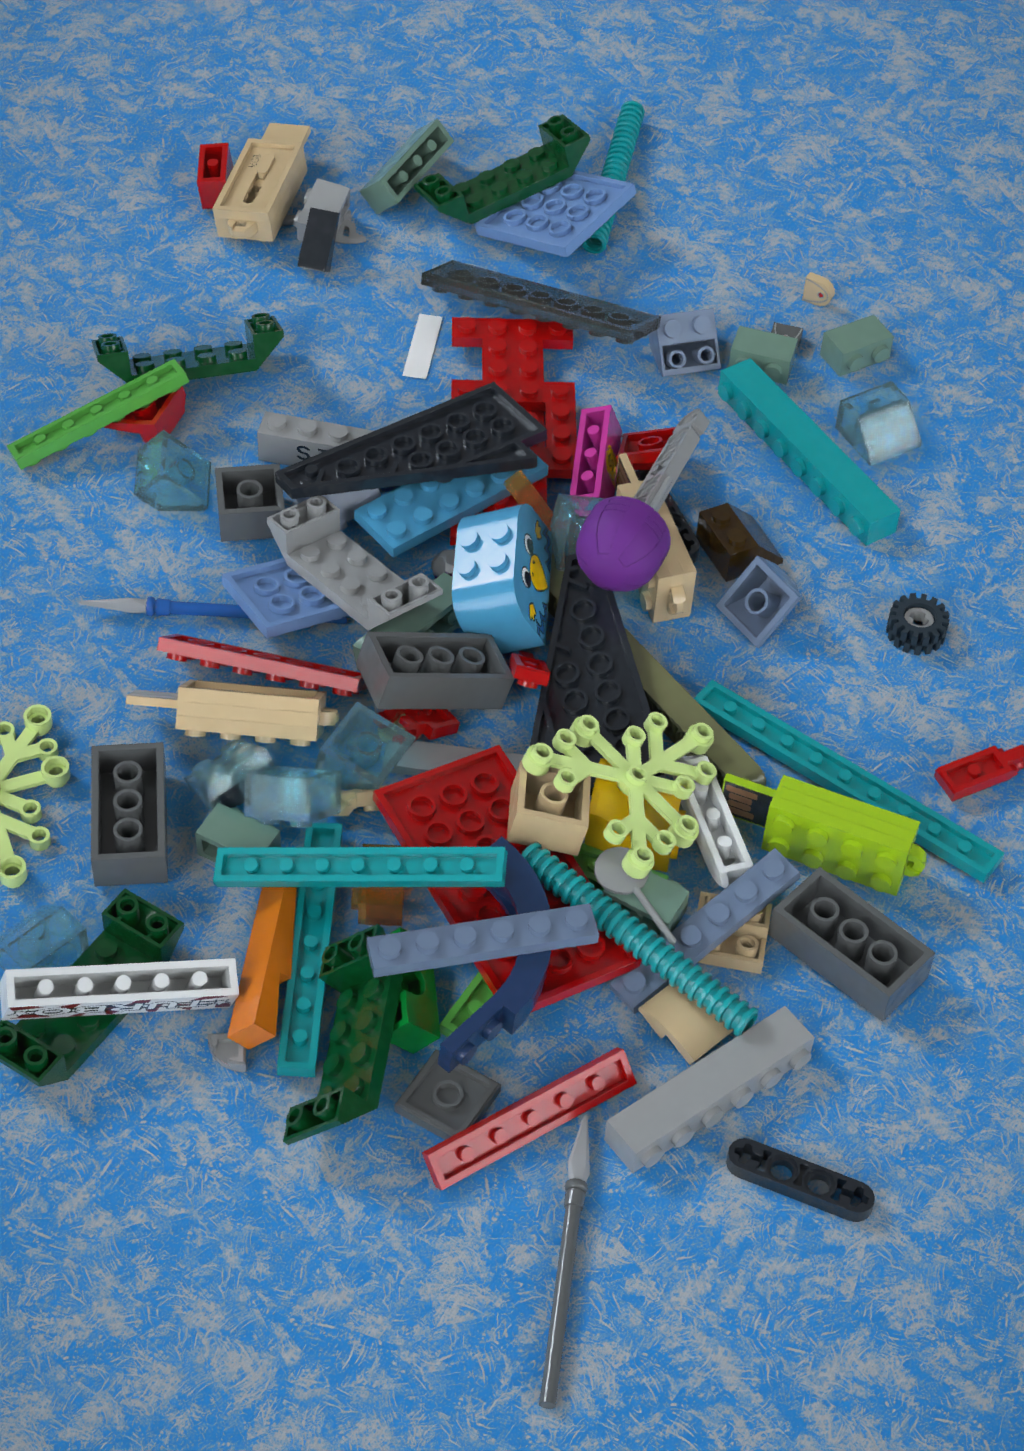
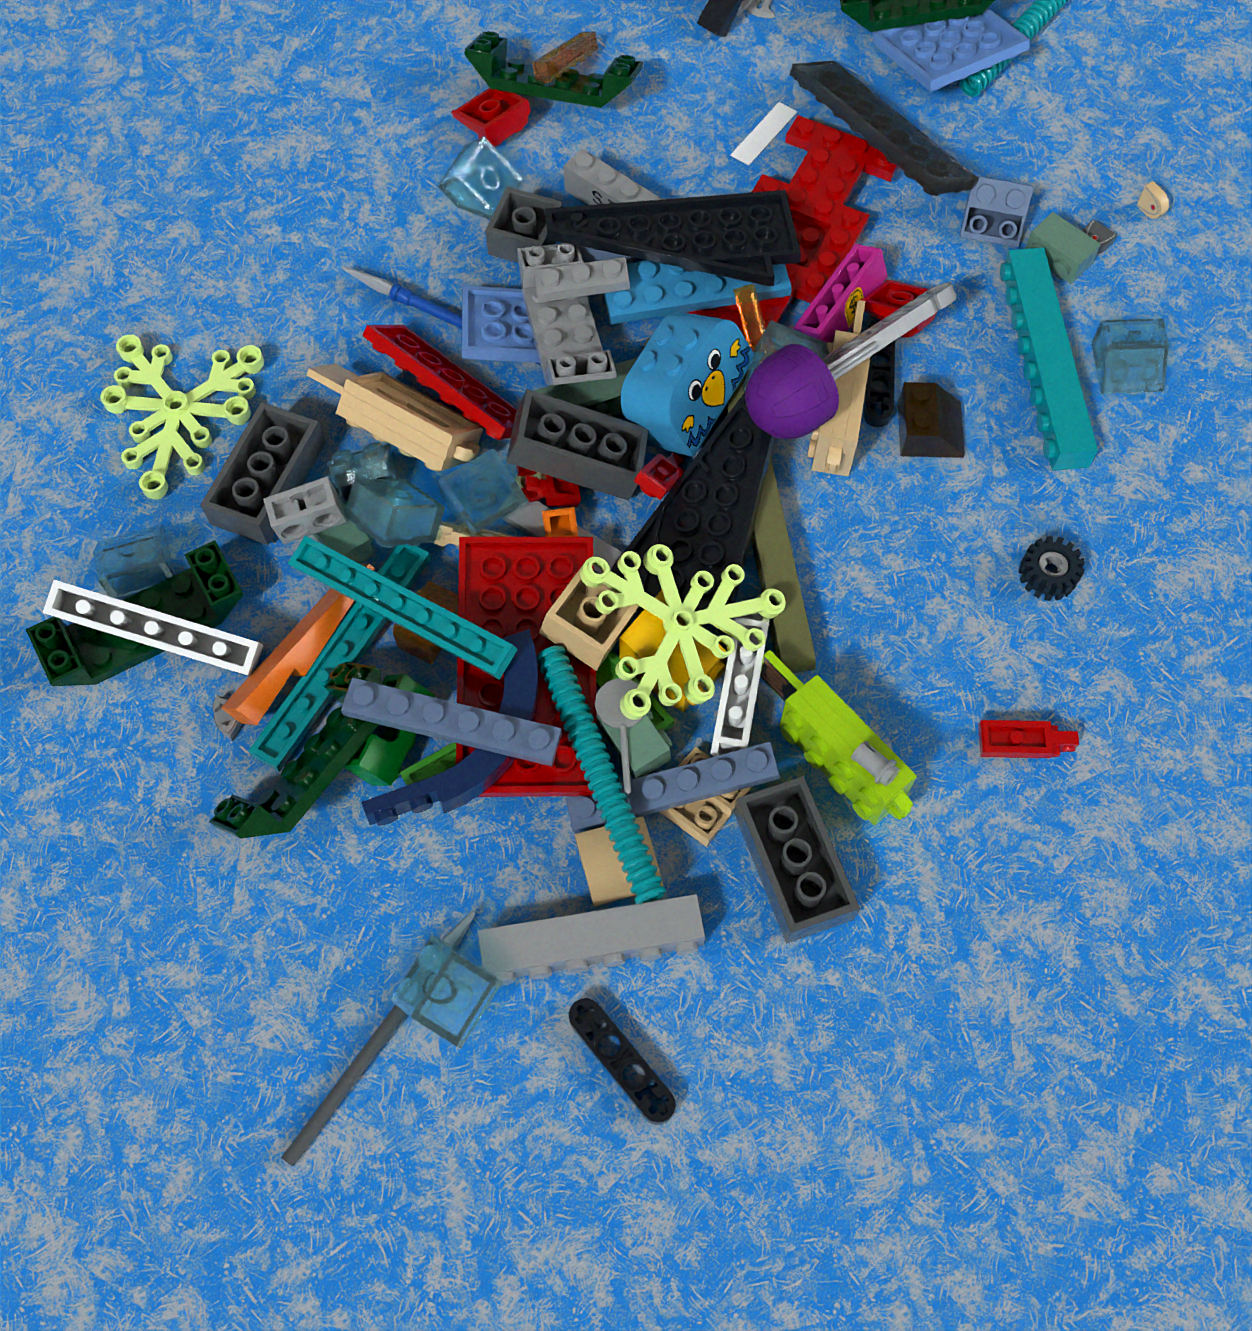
camera: 30 degrees right, 15 degrees up
(97, 414) = (449, 102): bright green plate -> none
(193, 334) = (565, 56): none -> clear orange piece
(209, 821) = (304, 510): none -> light grey brick
(347, 524) = (581, 279): none -> light grey plate
(445, 1100) = (372, 849): dark grey tile -> none
(452, 747) = (560, 522): none -> orange slope
(529, 1118) = (423, 893): plate -> none
(613, 1180) = (446, 991): none -> clear light blue slope
(759, 600) = (915, 487): sand blue slope -> none
(848, 779) = (895, 700): teal plate -> none
(856, 345) = (1158, 269): sand green brick -> none
(882, 822) = (875, 763): none -> light grey pin

